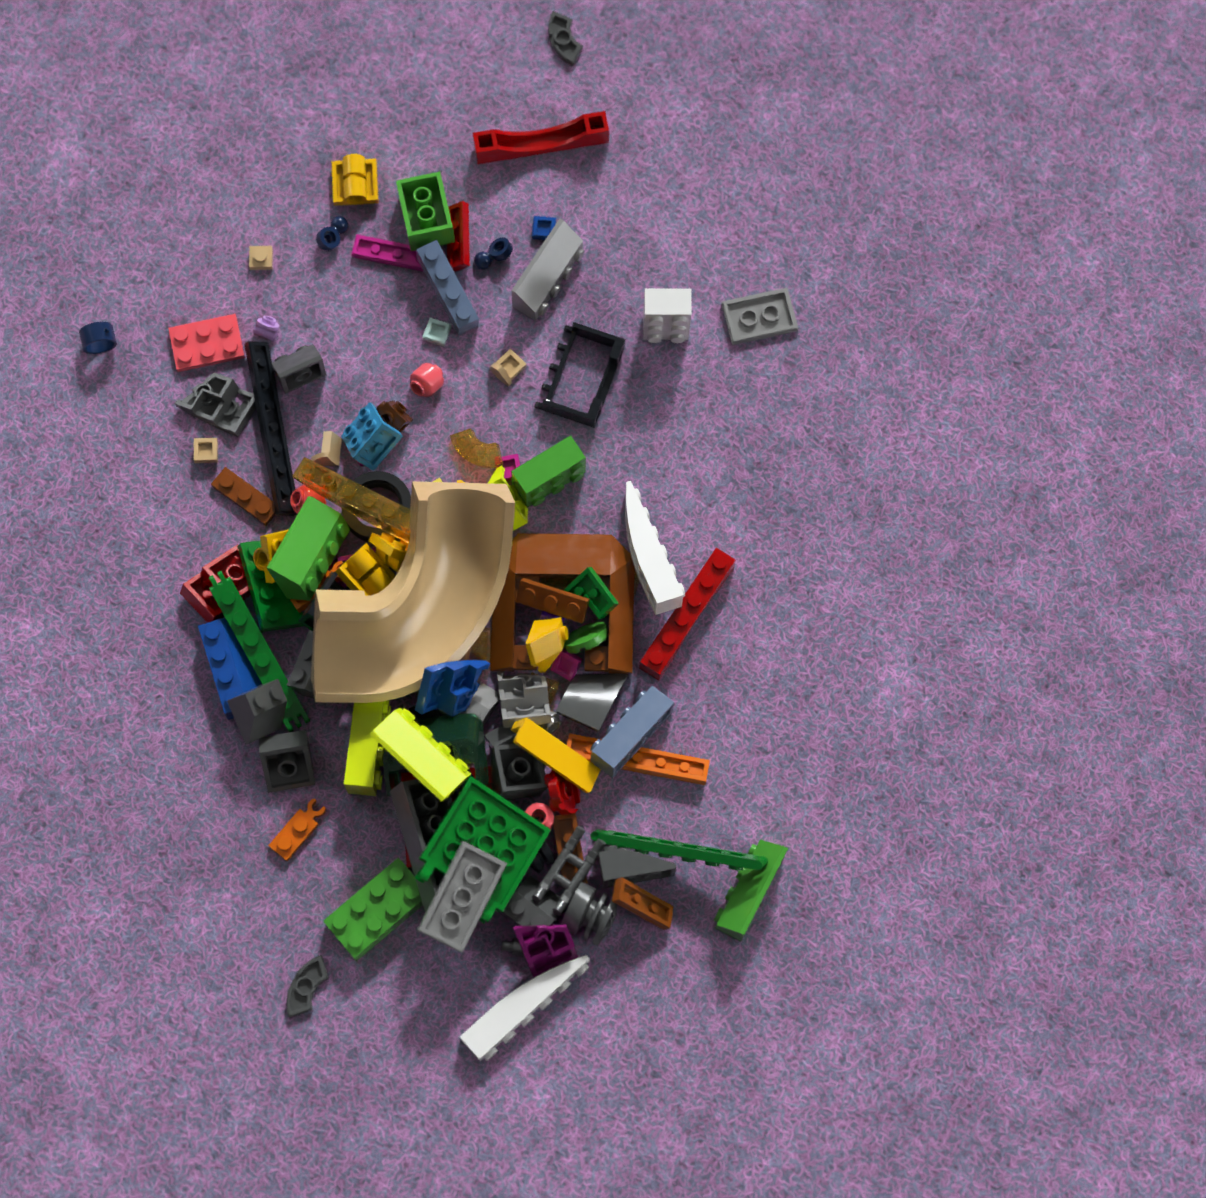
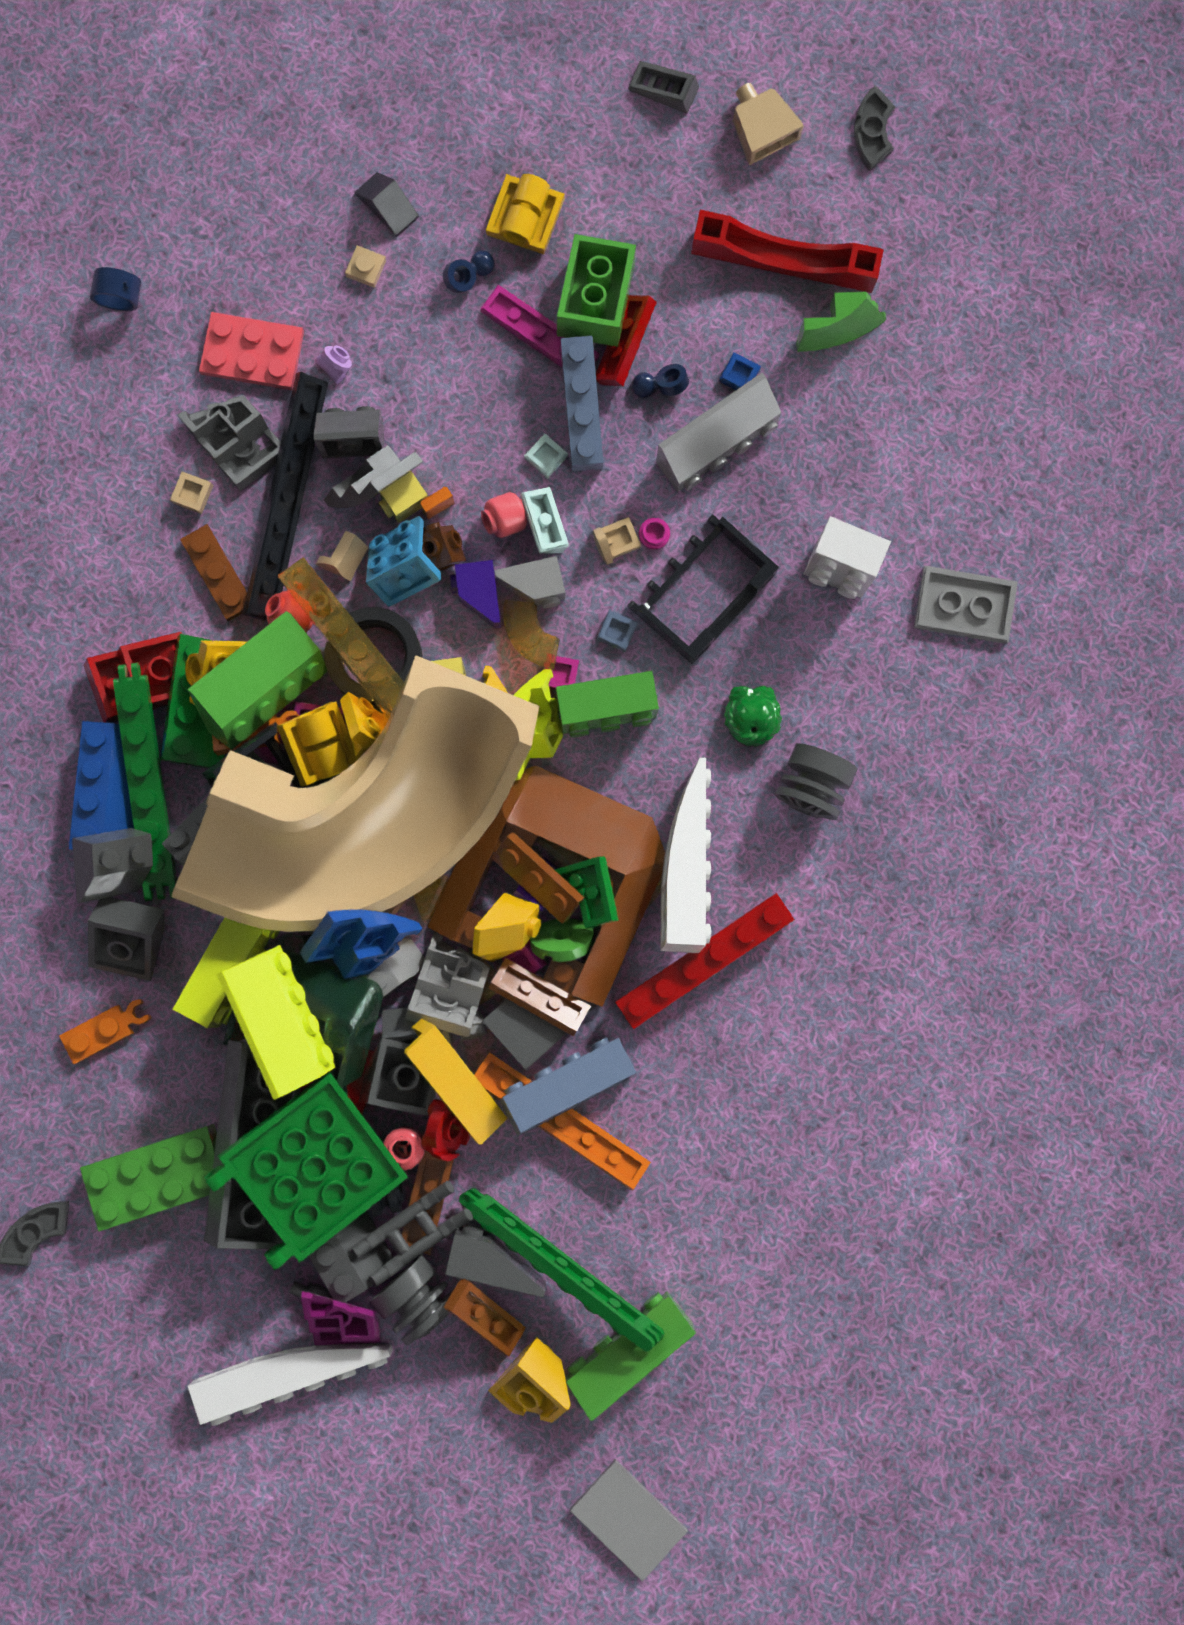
camera: 20 degrees right, 10 degrees up
(258, 210) = (387, 202): none -> slope
(326, 391) = (371, 478): none -> slope
(352, 395) = (402, 497): none -> light yellow brick
(377, 390) = (437, 502): none -> orange tile
(421, 71) = (680, 79): none -> dark grey slope
(429, 436) = (478, 590): none -> dark purple slope
(455, 372) = (545, 521): none -> light aqua slope
(462, 896) = (252, 1227): light grey tile -> none
(465, 414) = (535, 581): none -> light grey slope
(490, 62) = (764, 123): none -> tan torso
(532, 352) = (654, 533): none -> dark pink plate
(534, 425) = (617, 631): none -> sand blue tile
(587, 679) = (539, 997): none -> plate
(602, 163) = (851, 317): none -> bright green slope
(646, 438) = (752, 709): none -> green hair
(695, 939) = (534, 1383): none -> yellow slope
(710, 466) = (818, 776): none -> dark grey wheel
(799, 1004) = (628, 1519): none -> light grey tile

